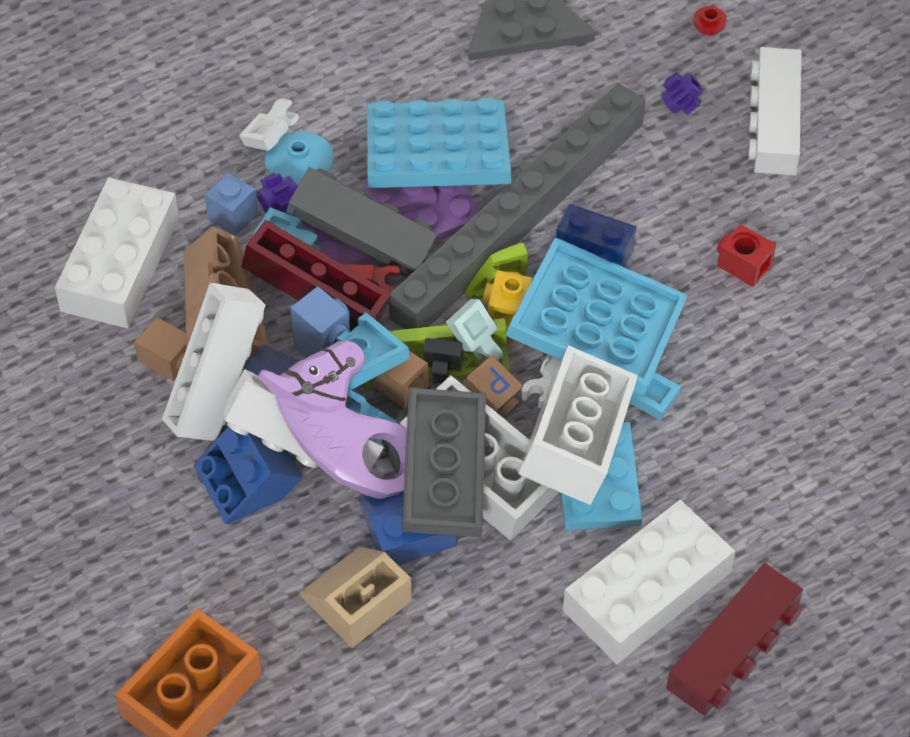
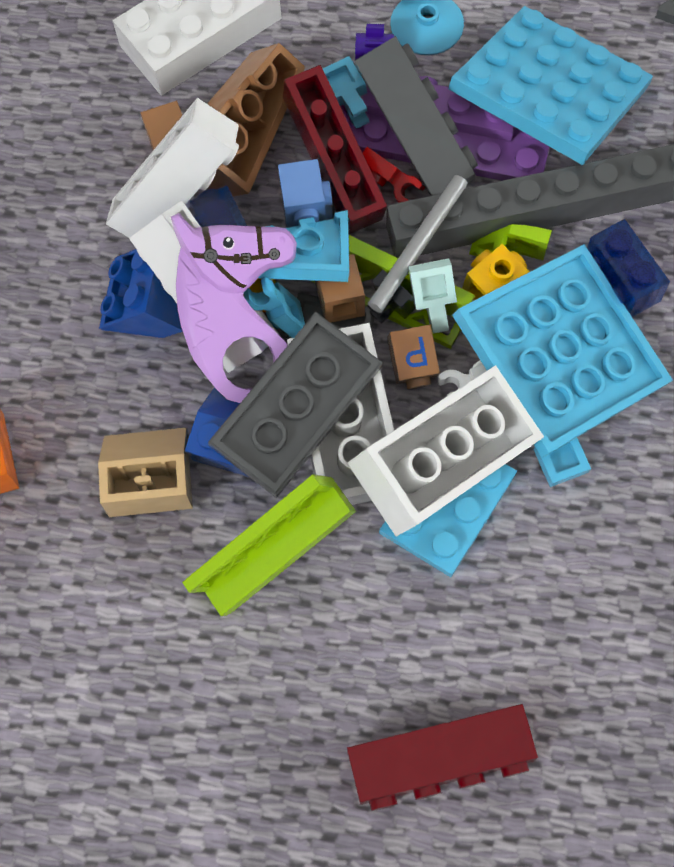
camera: 40 degrees right, 15 degrees up
(231, 204) = (327, 32): medium blue brick -> none
(438, 304) = (417, 243): none -> light grey bar
(502, 574) = (271, 543): none -> lime fence
(648, 581) = (407, 641): white brick -> none

